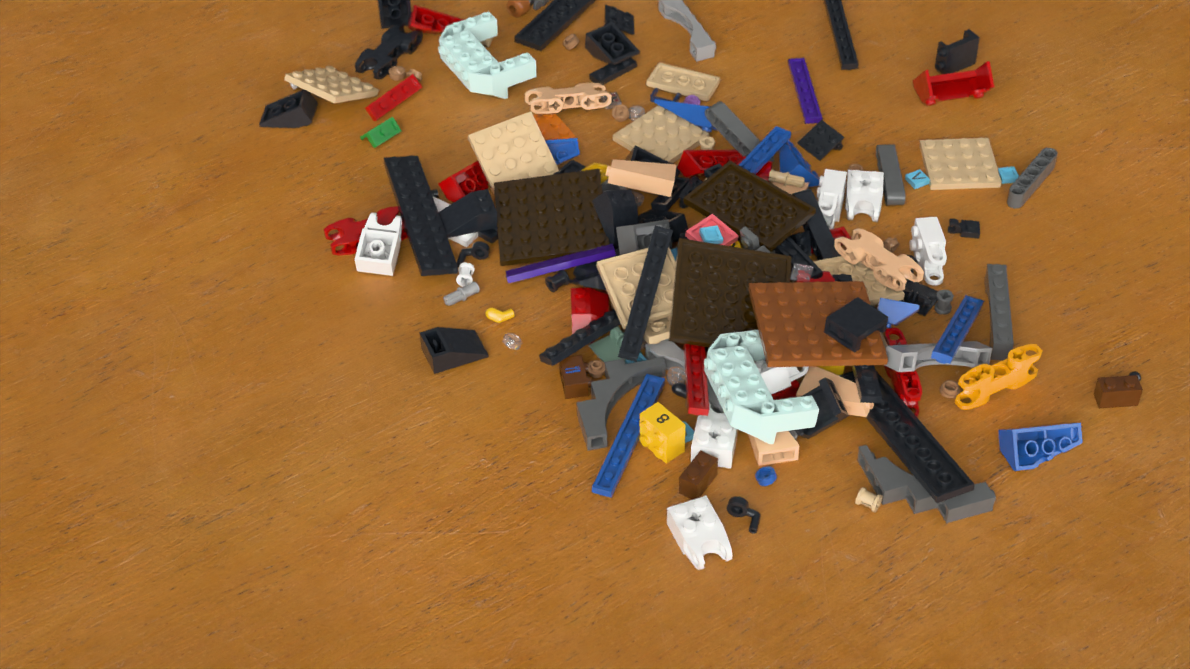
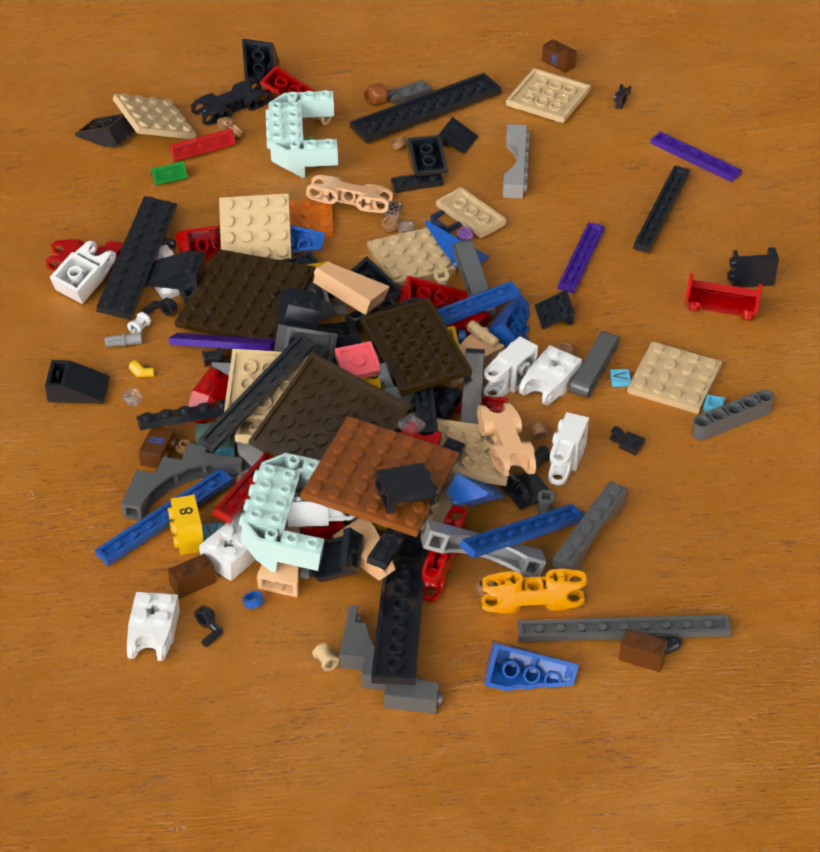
camera: 25 degrees right, 0 degrees up
(711, 234) = (353, 360): medium azure tile -> none
(1084, 381) = (615, 628): none -> dark grey plate

